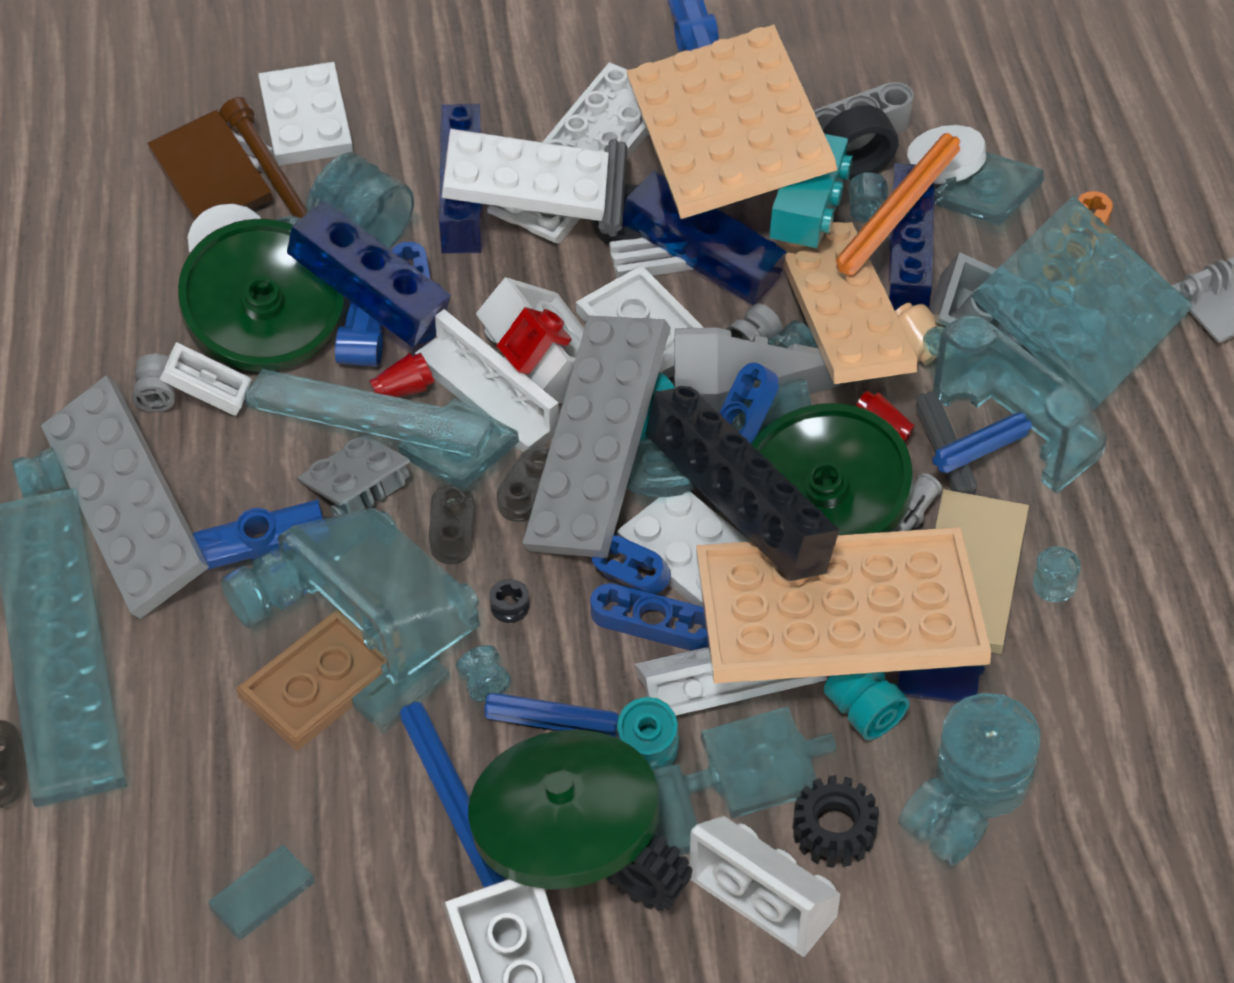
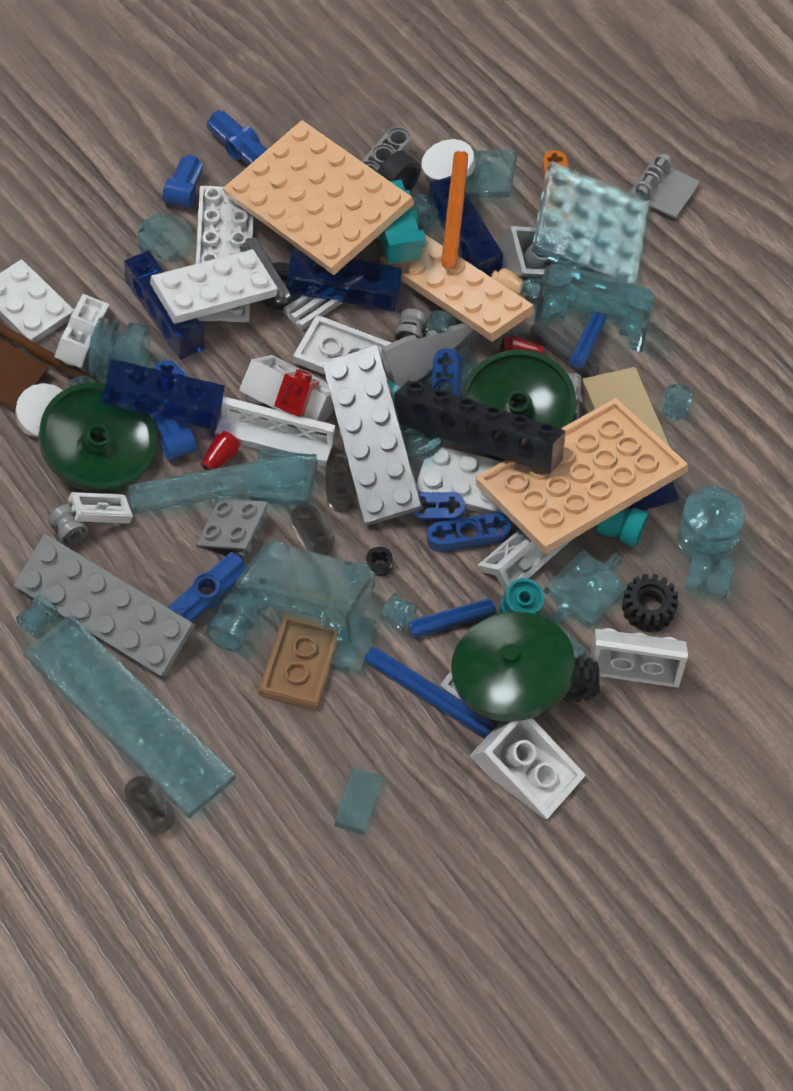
camera: 35 degrees left, 5 degrees up
(304, 169) = (76, 338): none -> white slope
(525, 106) = (165, 237): none -> clear light blue tile
(585, 56) = (182, 186): none -> blue piece

